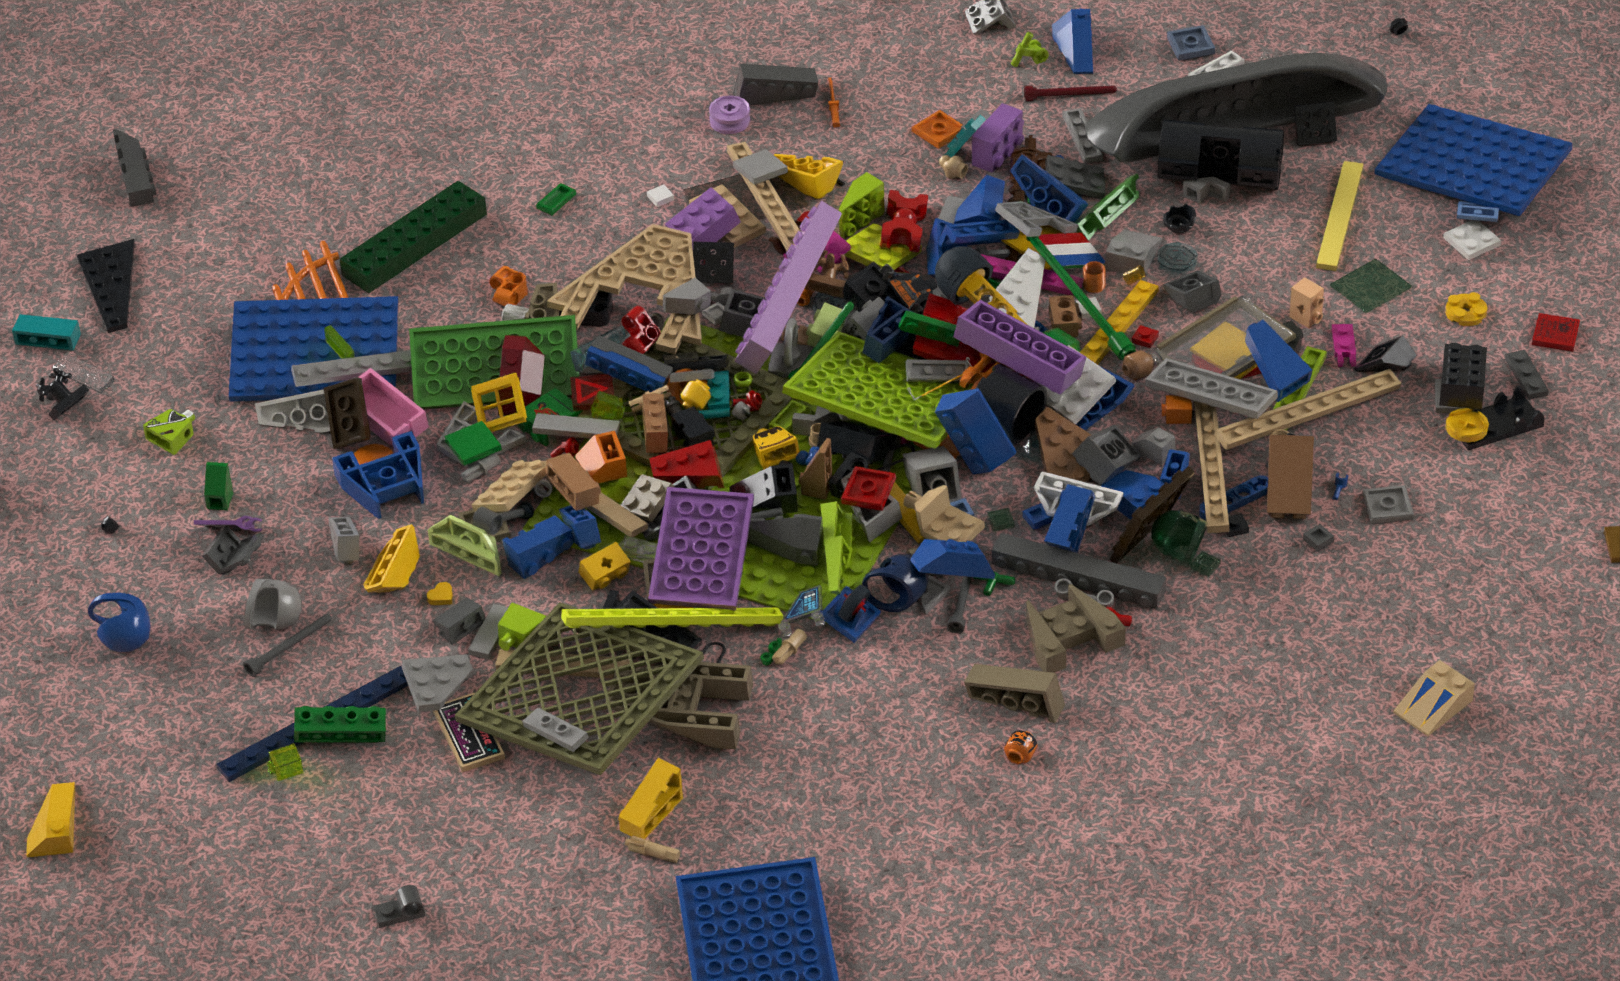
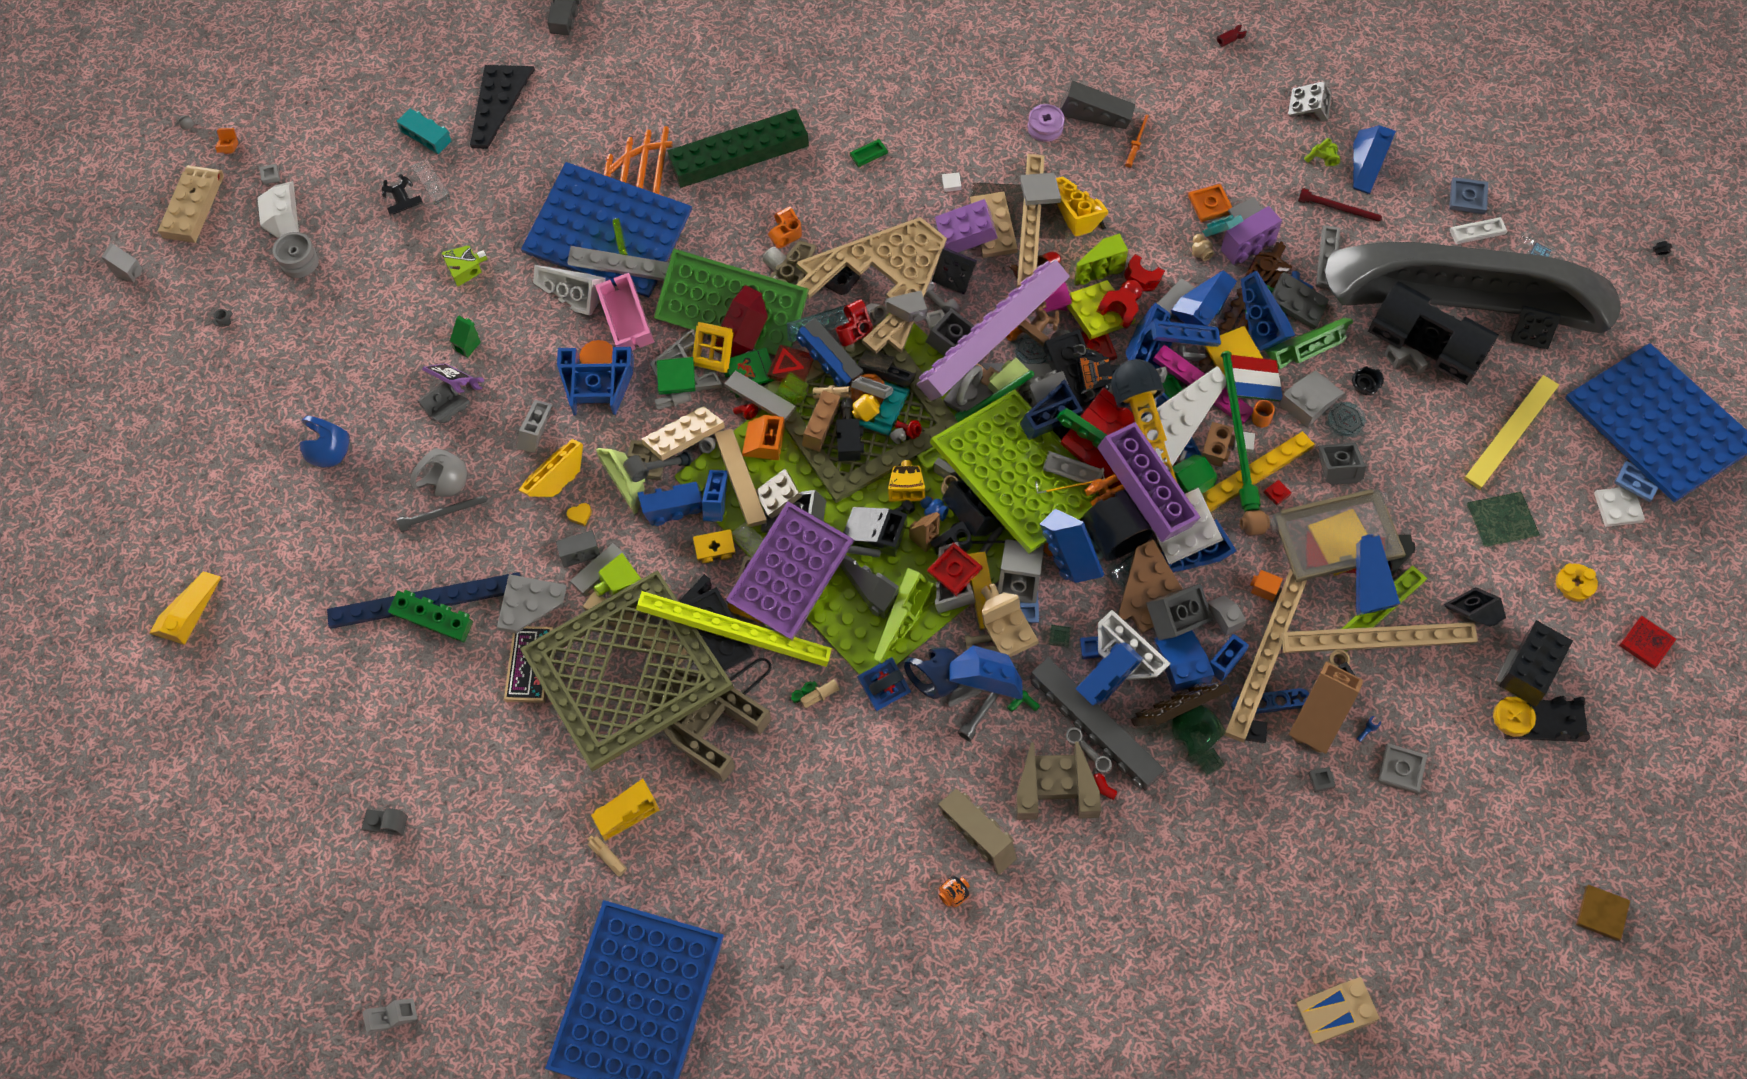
camera: 25 degrees right, 20 degrees up
(109, 525) = (374, 336): black hinge -> none
(285, 762) = (375, 632): clear neon green brick -> none
(347, 413) = (591, 308): dark brown plate -> none
(555, 729) = (579, 709): light grey plate -> none
(572, 481) = (727, 453): medium nougat brick -> none
(696, 462) = (827, 479): red wedge -> none
(742, 384) = (917, 407): lime piece -> none
(806, 605) = (848, 663): flag -> none
(1030, 218) = (1232, 329): light grey wing -> none
(1134, 274) = (1299, 424): clear yellow hinge -> none
(1211, 388) = (1302, 584): light grey plate -> none
(1306, 302) = (1433, 521): light nougat brick -> none
(1344, 343) = (1448, 573): dark pink hinge -> none
(1526, 374) = (1598, 678): dark grey plate -> none

